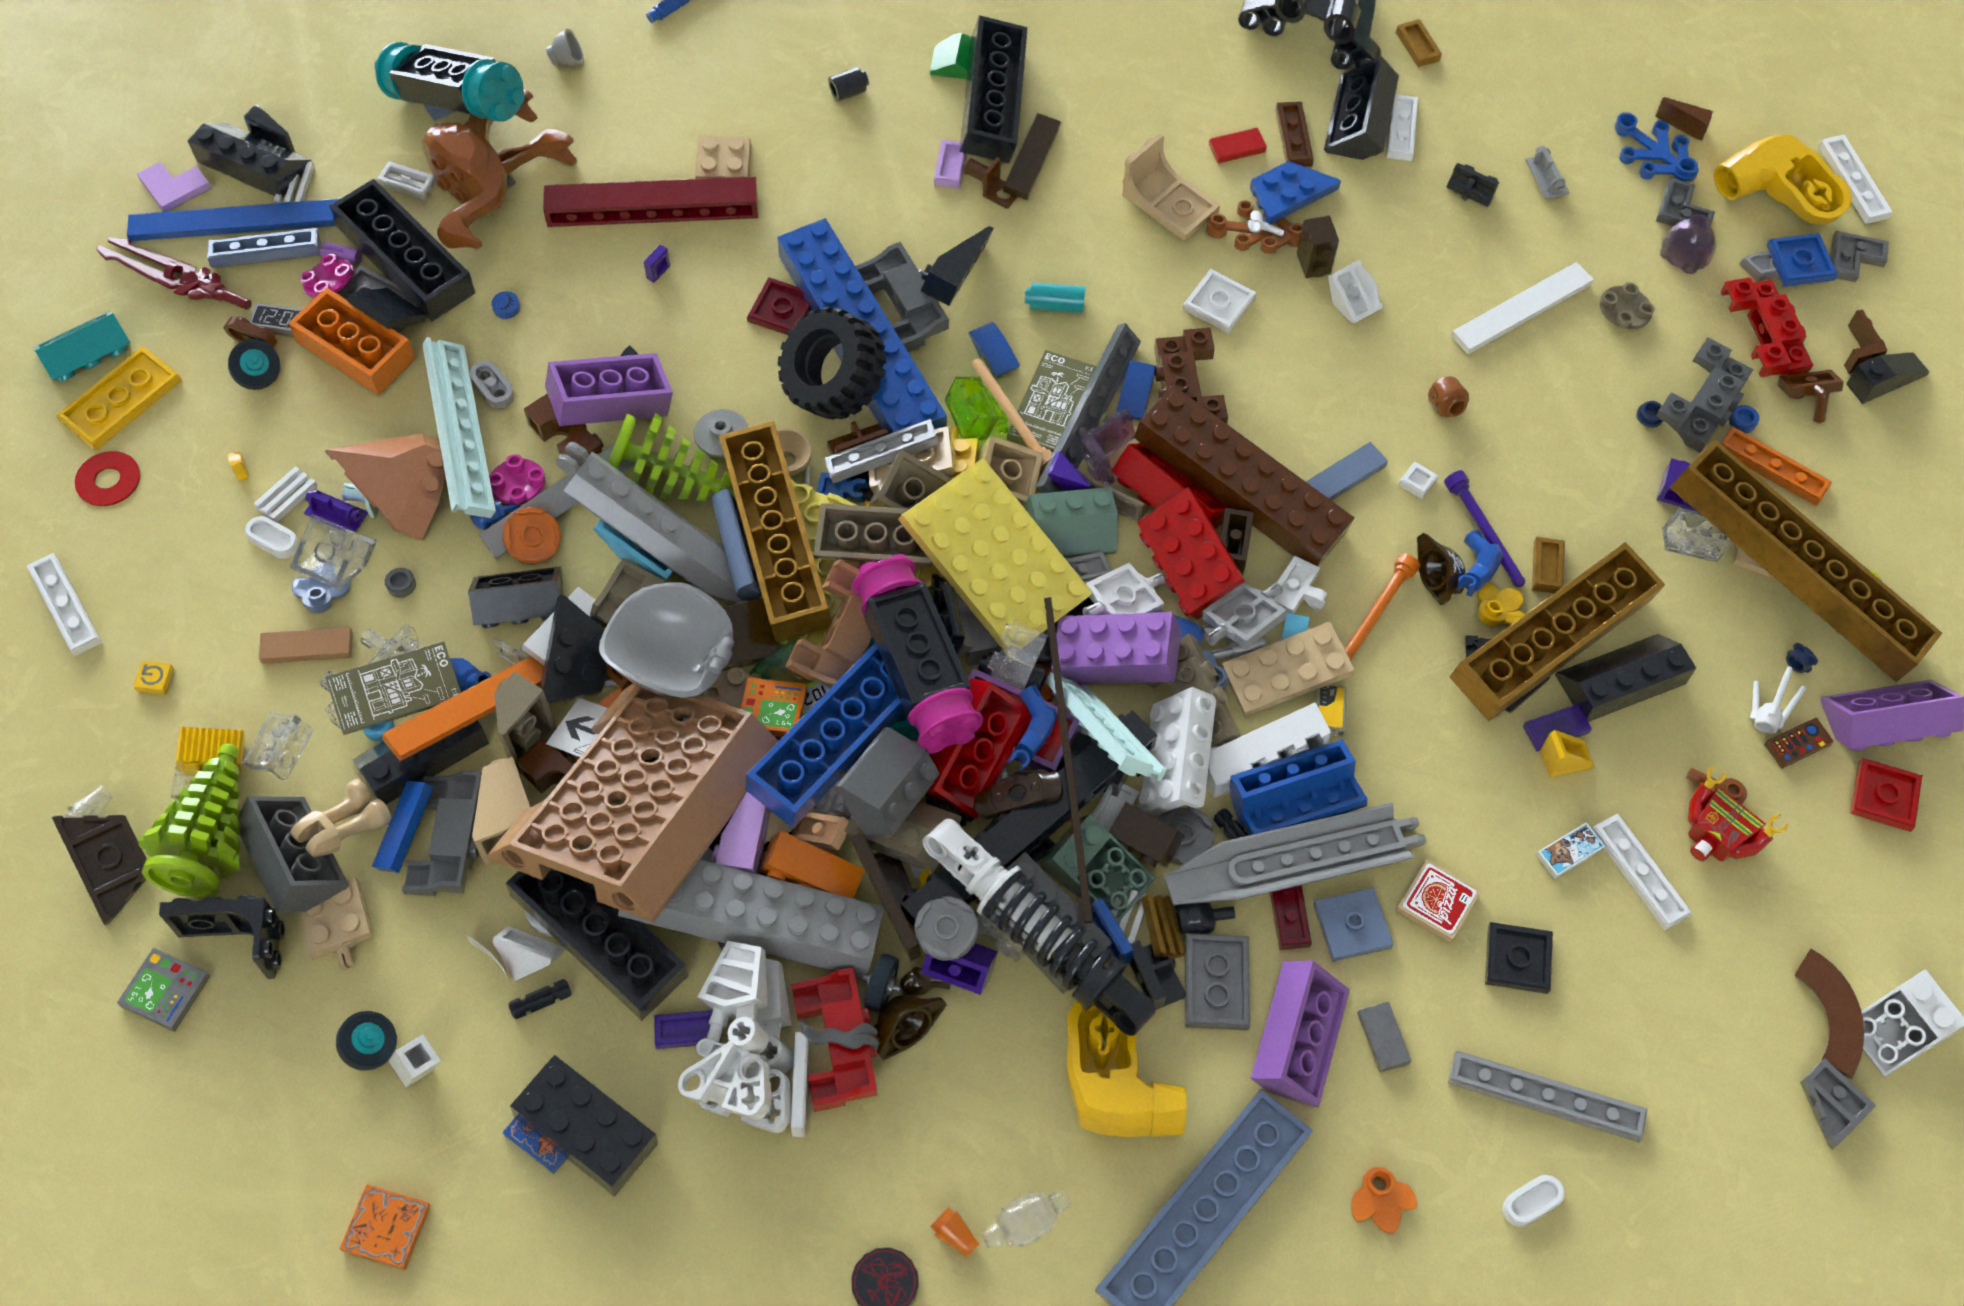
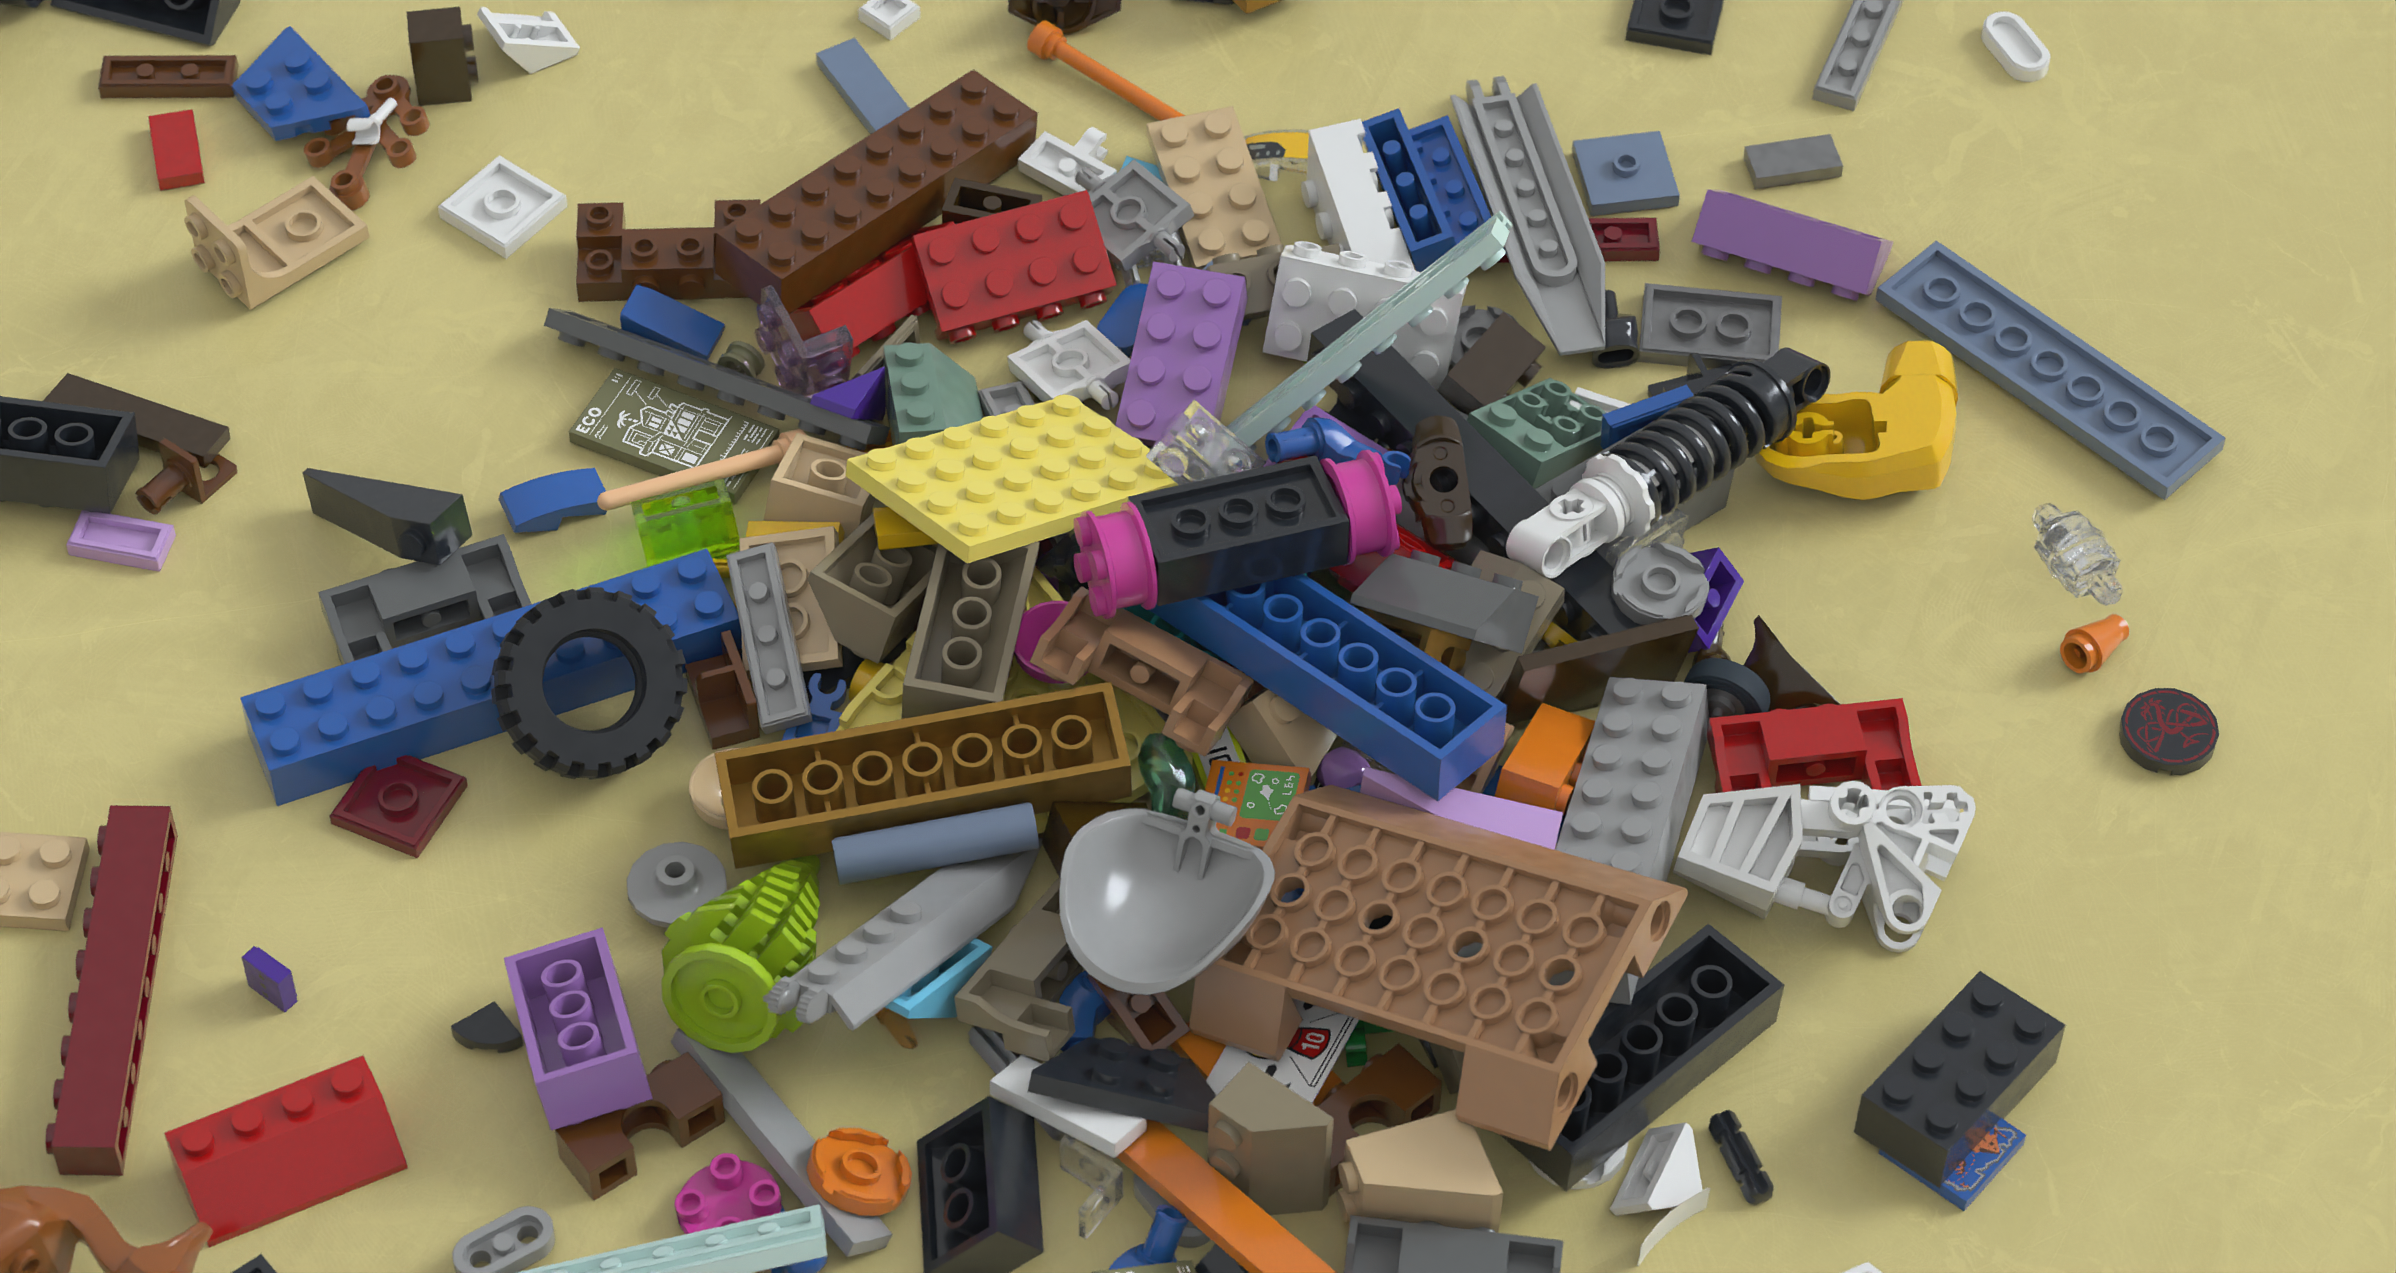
camera: 85 degrees left, 10 degrees down
(505, 305) = (311, 1234): blue tile -> none
(550, 285) = (286, 1150): none -> red slope
(681, 1029) = (1790, 957): dark purple tile -> none
(853, 1039) = (1828, 715): dark grey hair -> none
(1055, 297) = (464, 405): teal brick -> none
(1083, 903) = (1389, 412): dark brown piece -> none
(1166, 926) = (1629, 374): pearl gold tile -> none
(1232, 828) = (1488, 281): black axle -> none
(1384, 1204) = (2021, 190): orange plate -> none
(1438, 901) = (1592, 80): tile -> none

